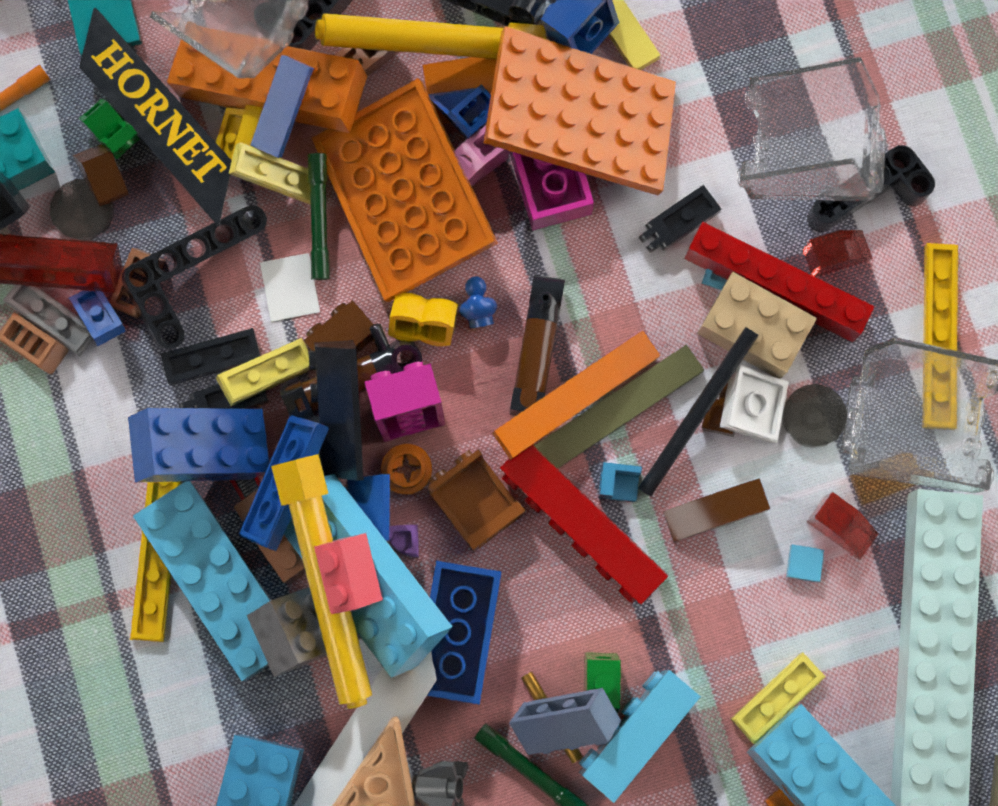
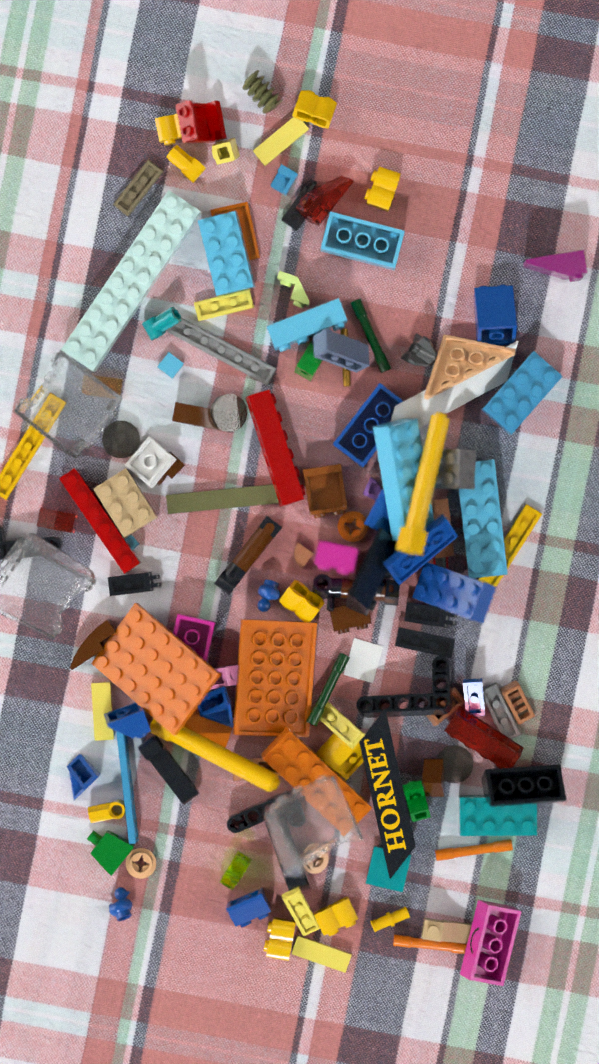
camera: 150 degrees left, 10 degrees up
(264, 372) = (399, 617): light yellow tile -> none
(281, 106) = (317, 754): tile -> none
(348, 573) = (411, 479): coral brick -> none
(458, 388) = (302, 555): none -> nougat tile
(575, 395) = (242, 516): orange tile -> none
(619, 482) = (244, 459): dark azure panel -> none
(676, 776) = (298, 295): none -> yellowish green slope
(681, 537) = (228, 412): none -> clear smoke tile
(688, 108) = (93, 643): none -> reddish brown slope
(698, 411) = (183, 473): black piece -> none
(744, 627) = (223, 351): none -> light grey tile
(843, 525) = (139, 373): clear red slope -> none
(858, 613) = (159, 324): none -> teal piece

